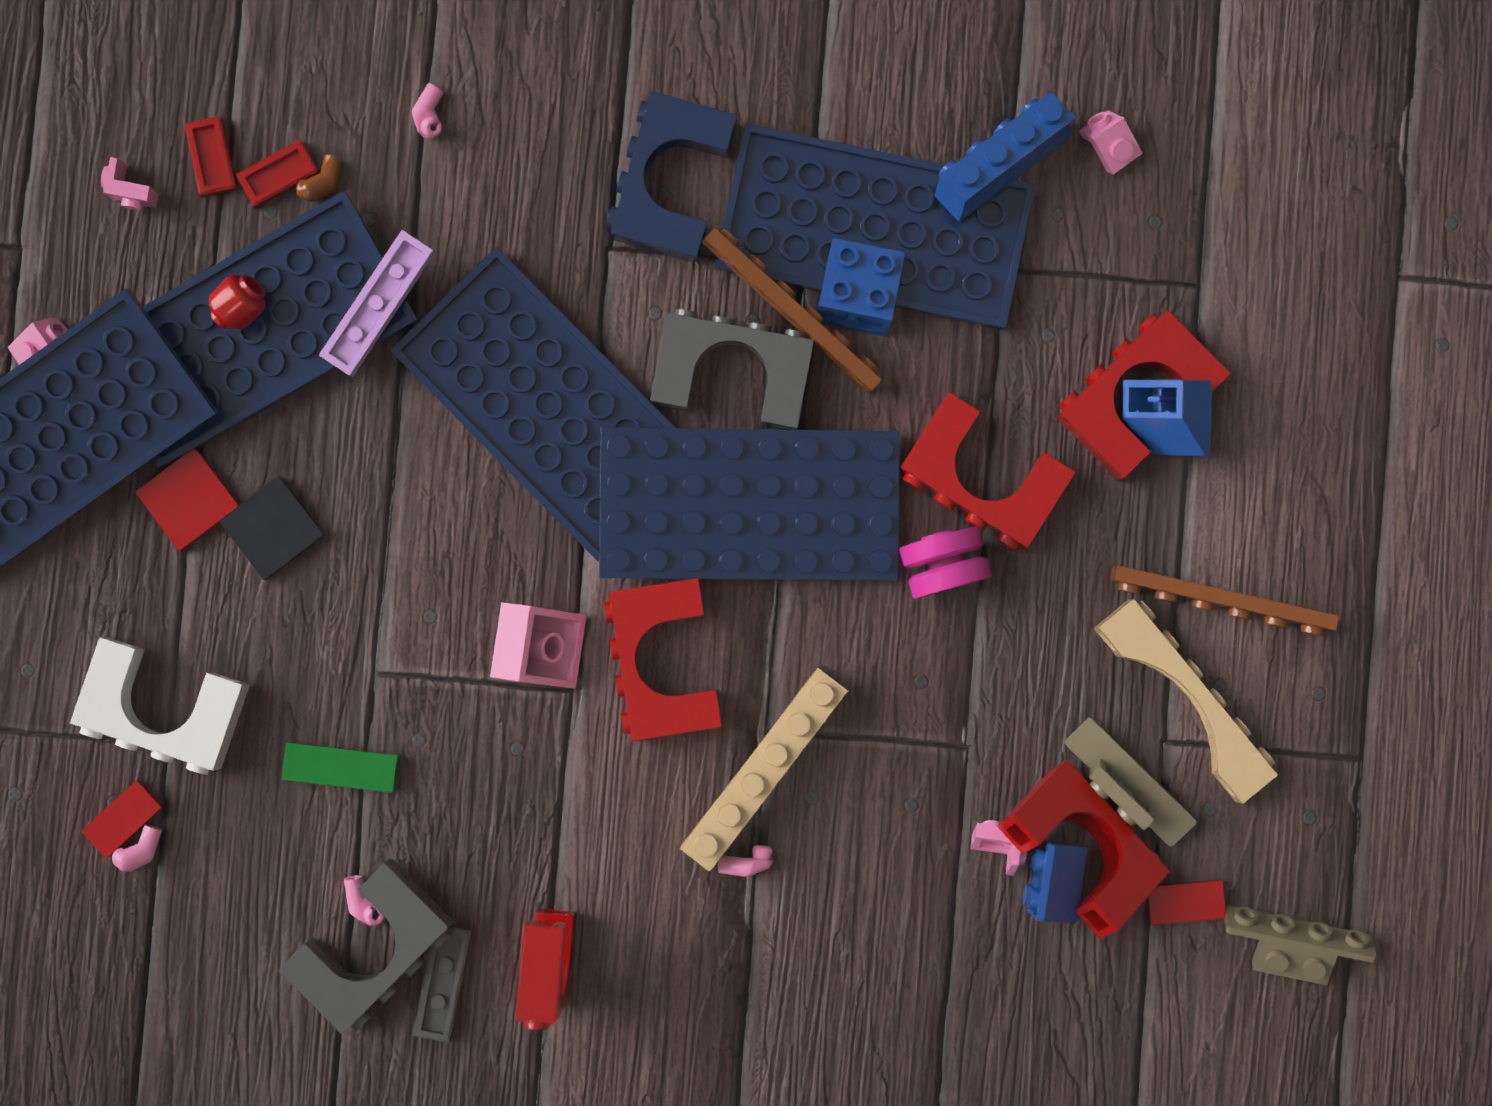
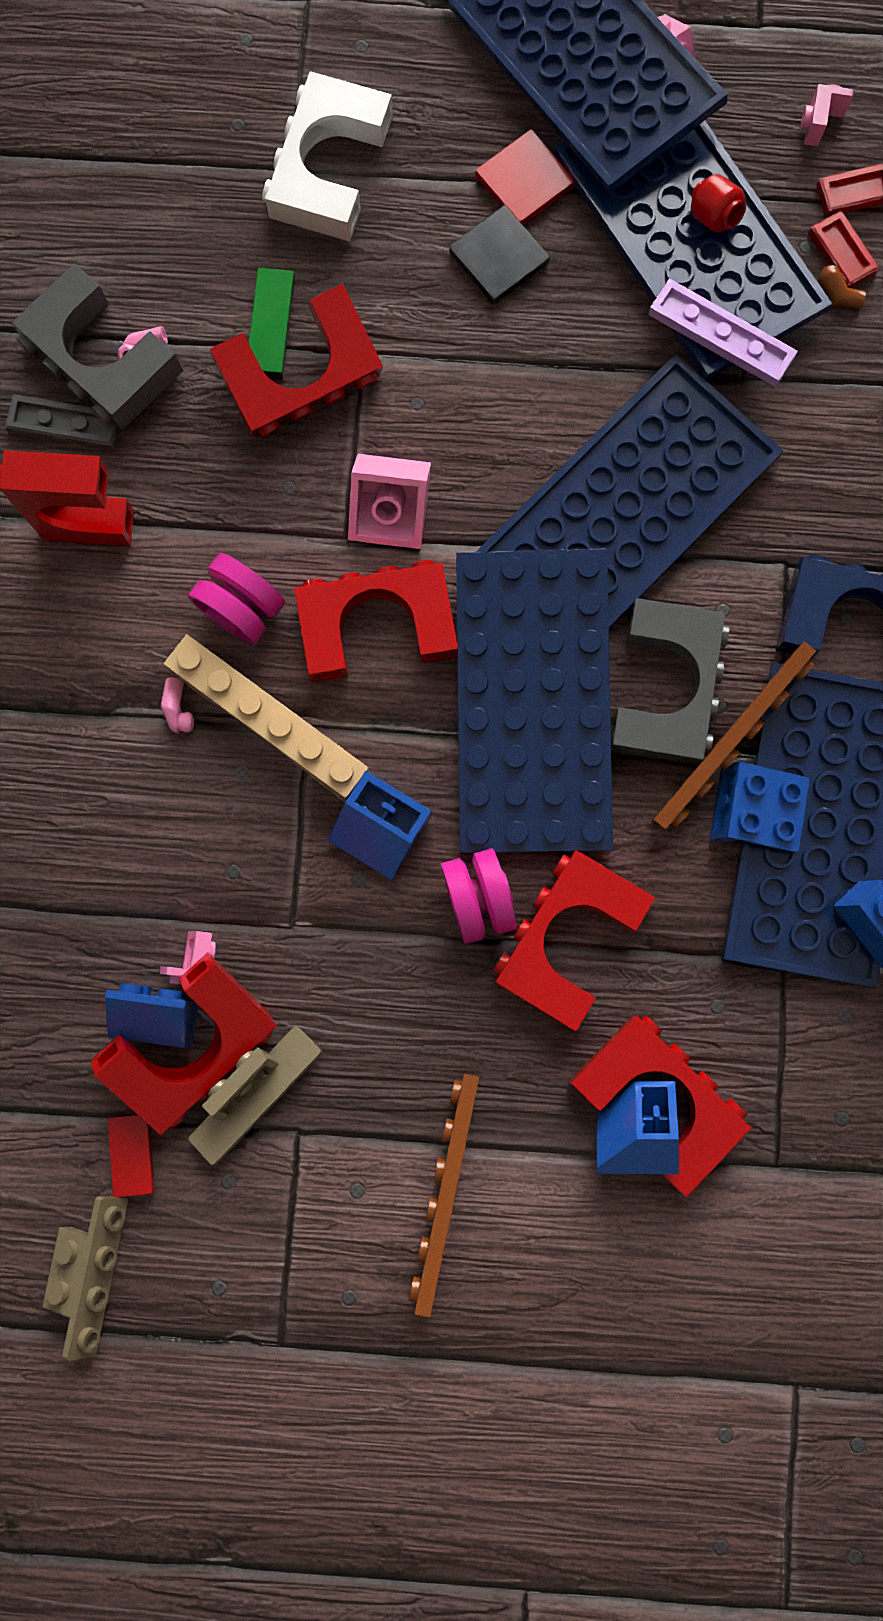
camera: 90 degrees right, 5 degrees down
(122, 818) = (221, 130): red tile -> none
(139, 854) = (188, 145): bright pink arm -> none
(392, 685) = (267, 404): none -> red arch
(644, 799) = (236, 599): none -> dark pink wheel
(872, 658) = (379, 825): none -> blue slope
(1233, 757) = (279, 1204): tan arch -> none

